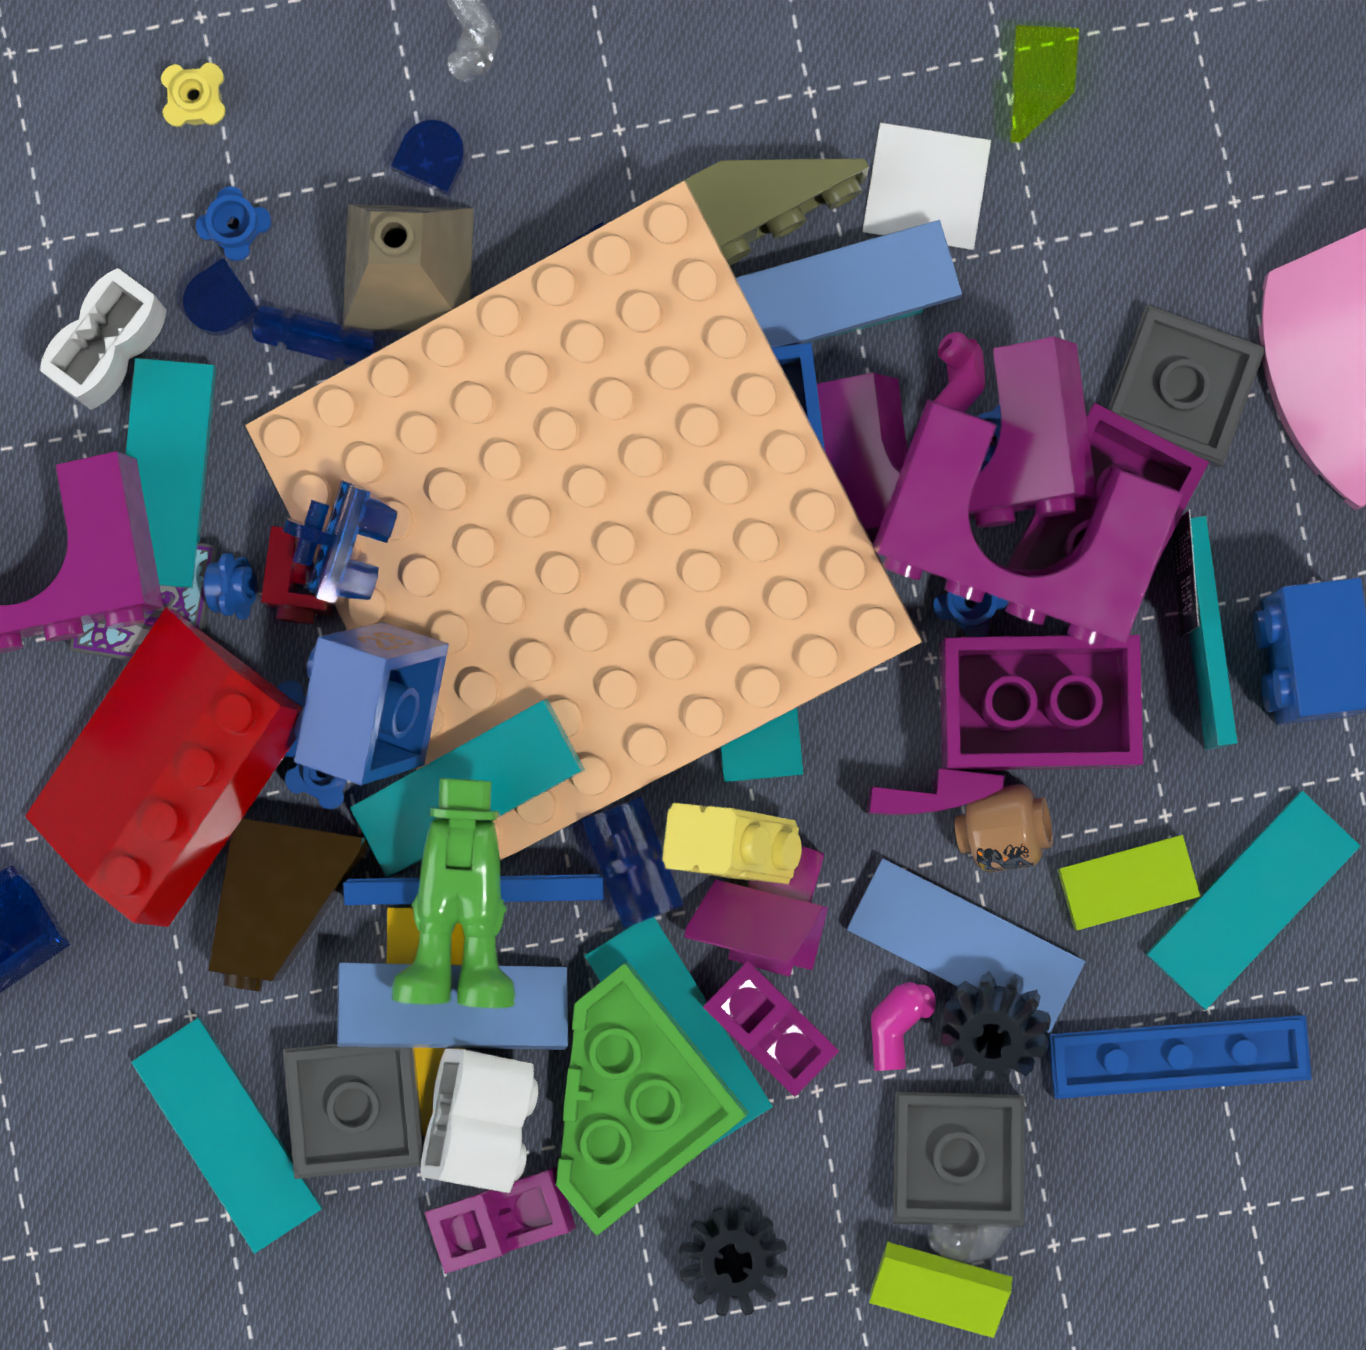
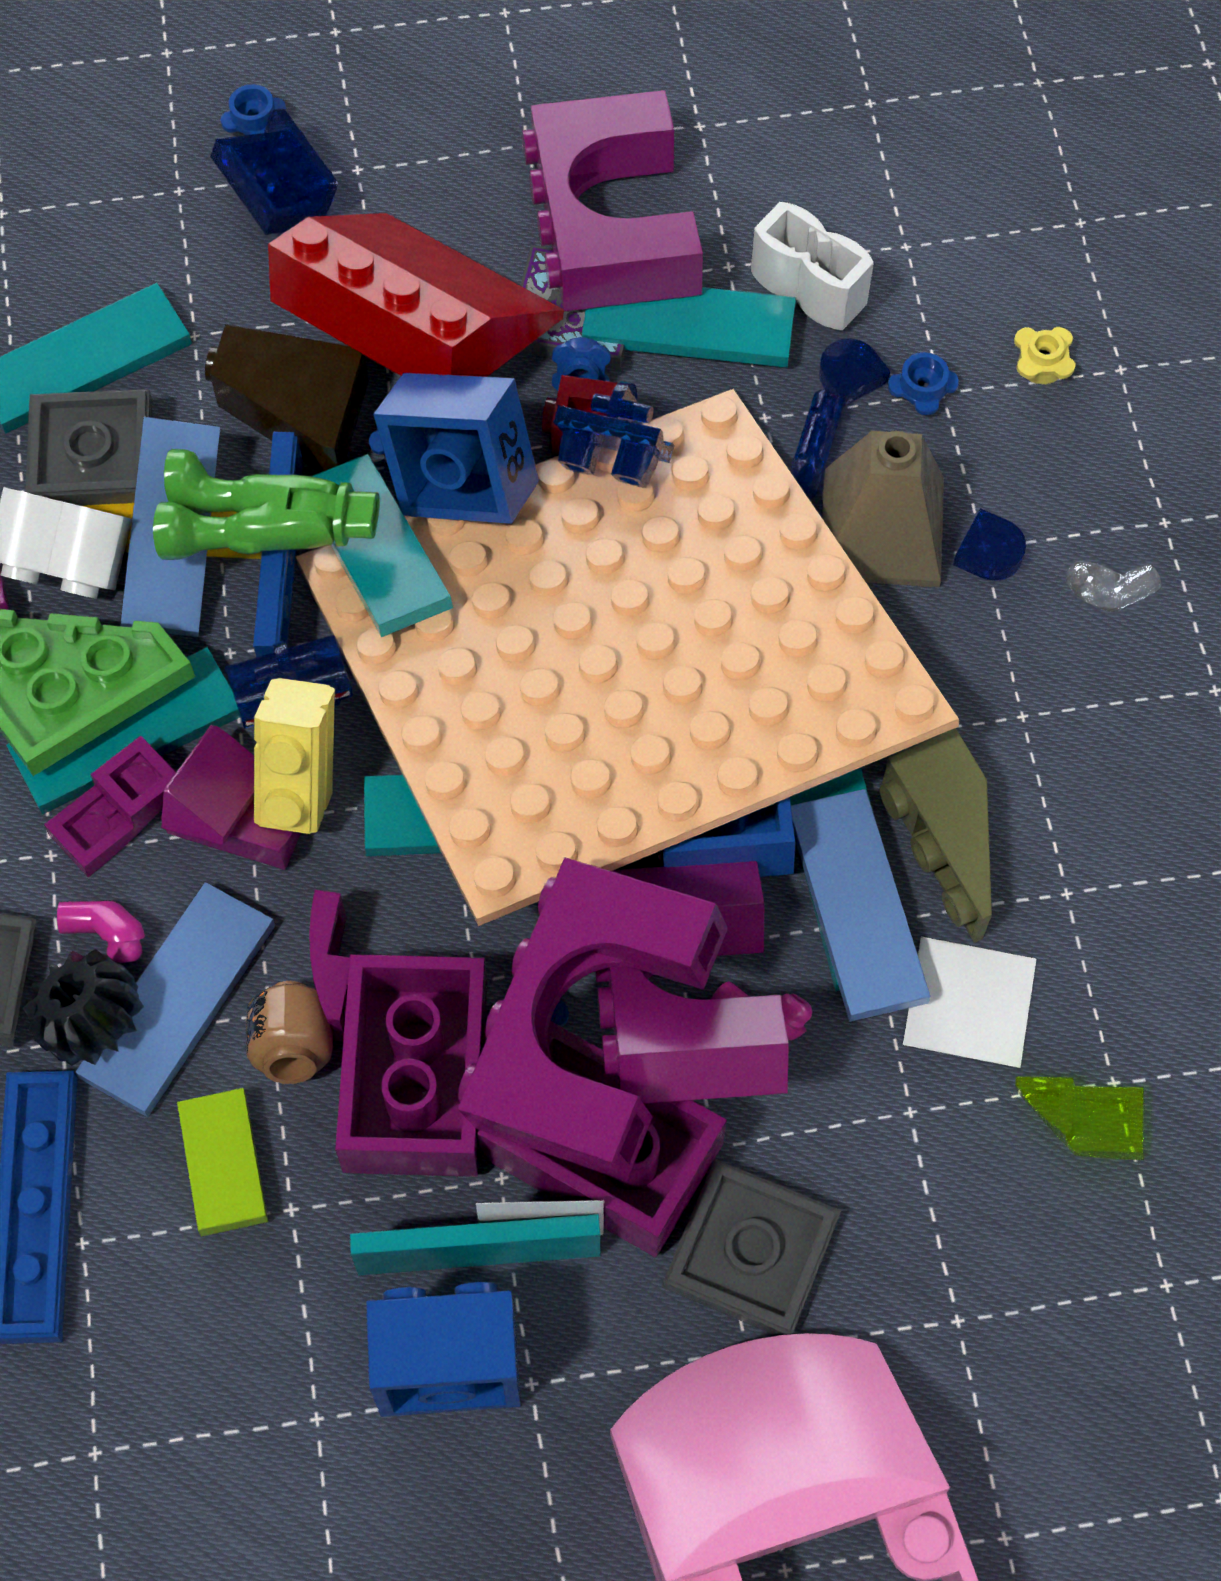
camera: 90 degrees right, 20 degrees down
(1252, 900) = (191, 1294): teal piece -> none

